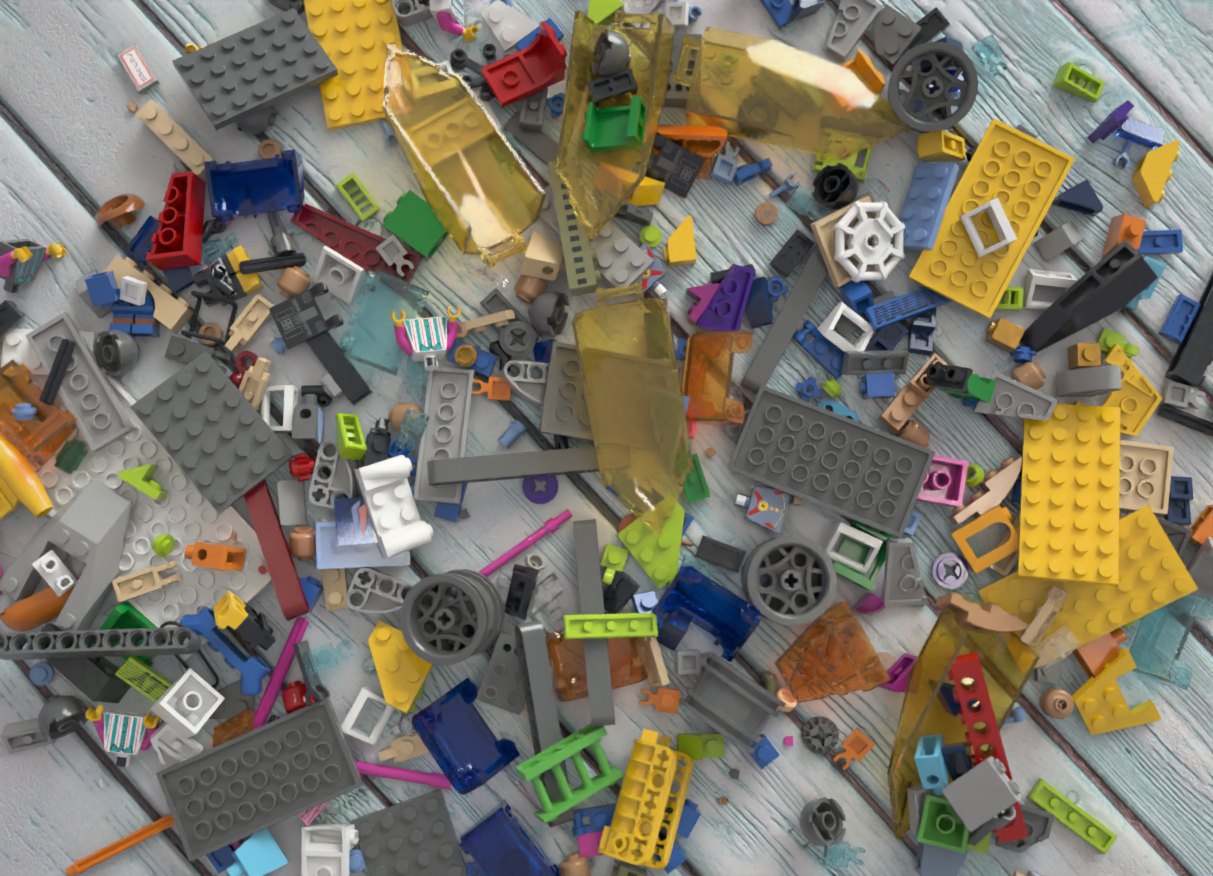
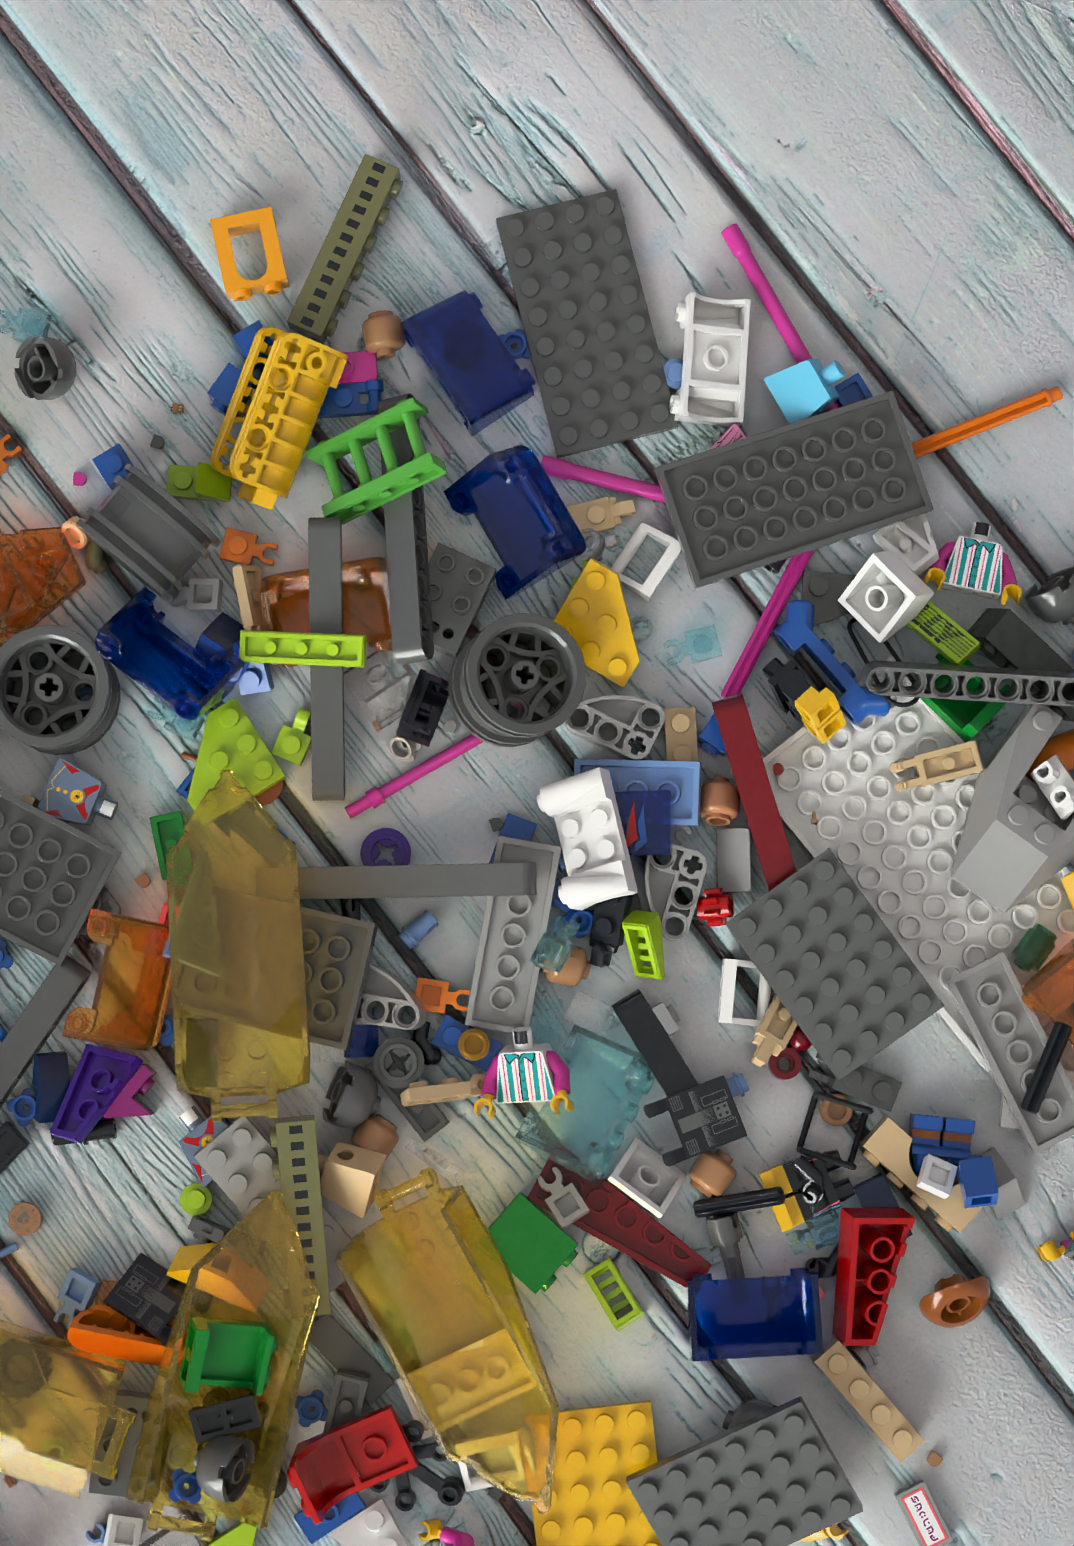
camera: 175 degrees left, 0 degrees up
(116, 352) = (967, 1091): dark grey cylinder -> none
(140, 479) = (940, 907): lime slope -> none
(142, 241) = (922, 1255): clear blue tile -> none
(163, 545) = (910, 813): lime plate -> none
(216, 556) = (828, 788): orange torso -> none
(233, 727) = (827, 560): clear orange plate -> none
(249, 323) = (778, 1121): tan hinge -> none
(269, 149) = (737, 1374): medium nougat tile -> none
(294, 697) = (740, 593): red head -> none
(308, 424) = (701, 953): dark grey torso -> none
(310, 677) = (714, 605): black flag -> none
(323, 398) = (687, 1011): black arm -> none
(388, 132) = (563, 1388): medium blue hand -> none
(619, 593) = (288, 694): black plate -> none
(640, 36) = (178, 1492): none -> blue plate
(681, 245) = (152, 1180): yellow slope -> none
(720, 553) = (144, 737): black plate -> none
(746, 172) = (46, 1281): blue plate -> none
(811, 729) = (45, 492): dark grey gear -> none

